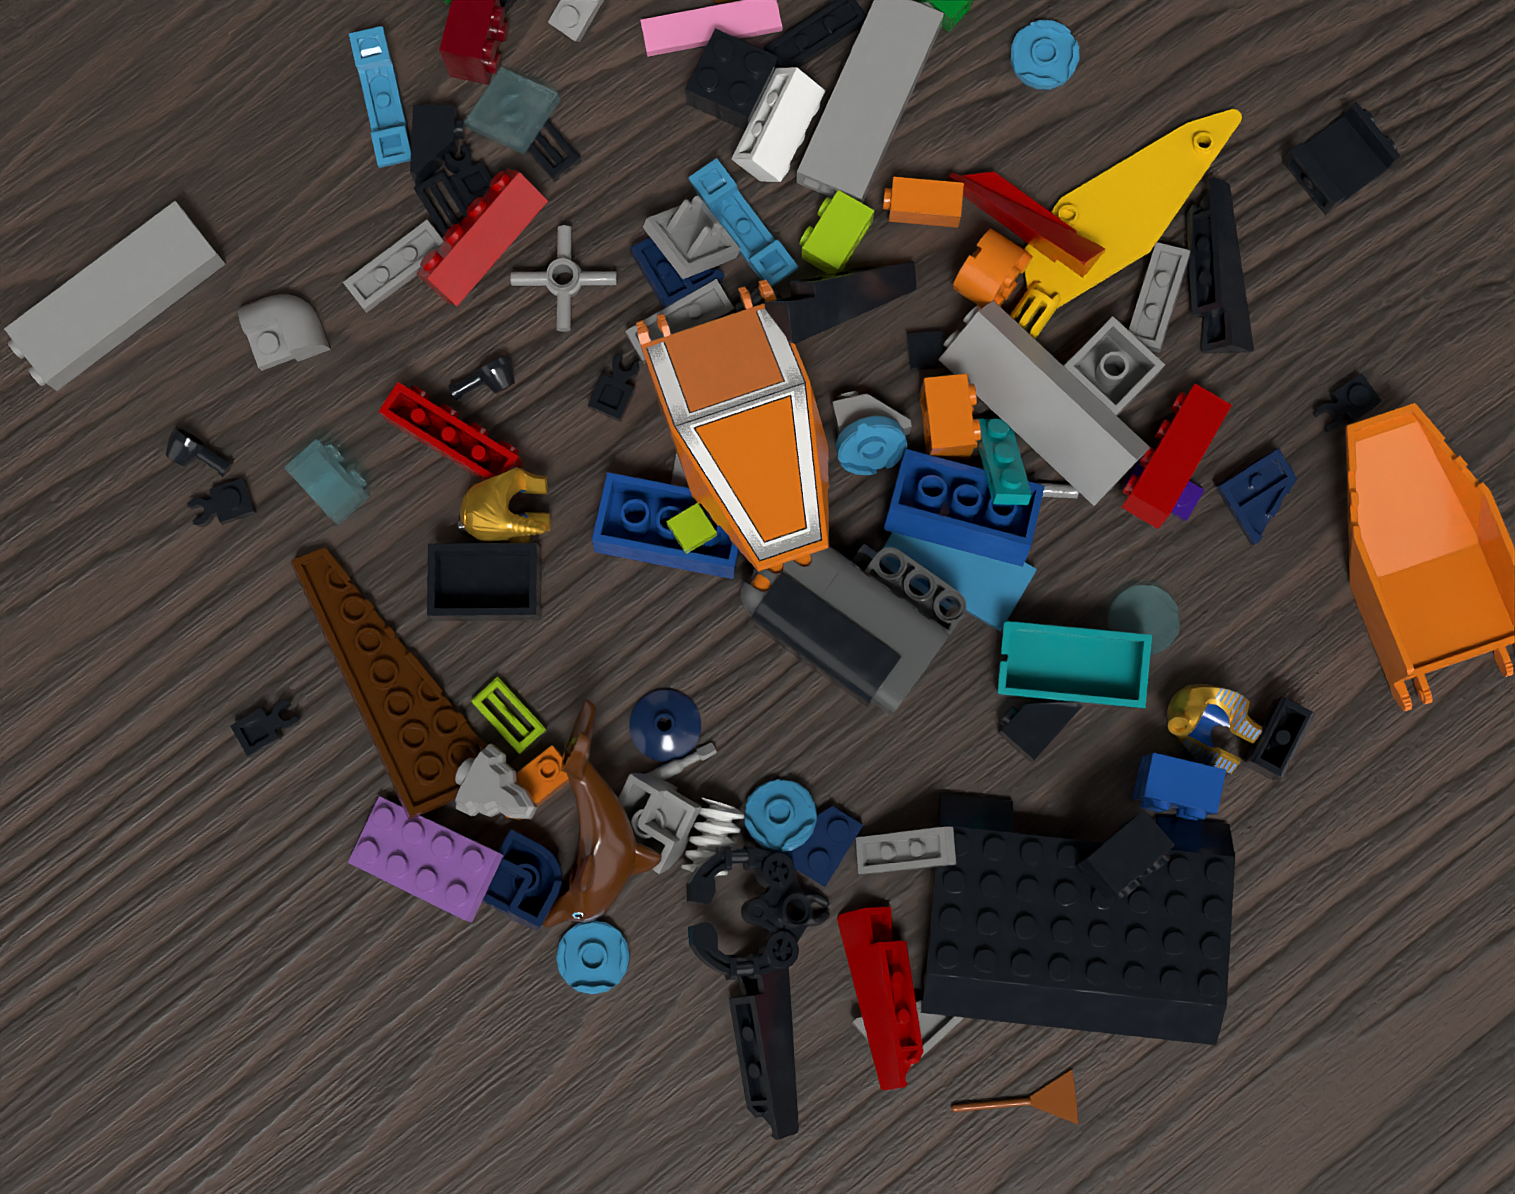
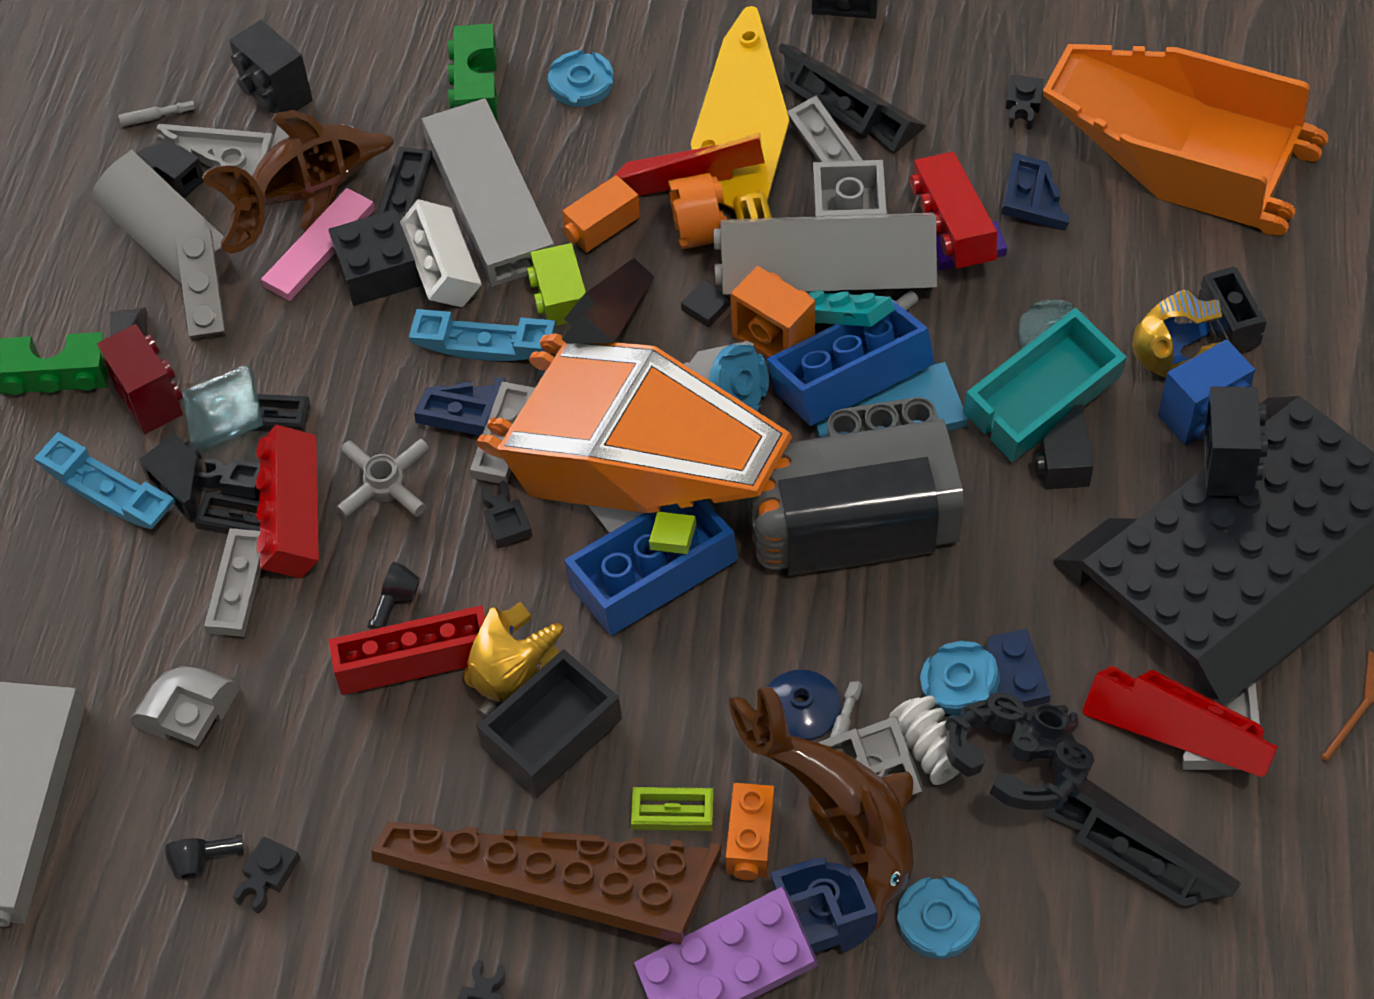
camera: 45 degrees left, 25 degrees down
(327, 482) = (340, 773): clear light blue brick -> none
(492, 787) = (723, 847): light grey rock -> none
(691, 238) = (454, 368): light grey plate -> none
(906, 850) = (1079, 603): light grey plate -> none

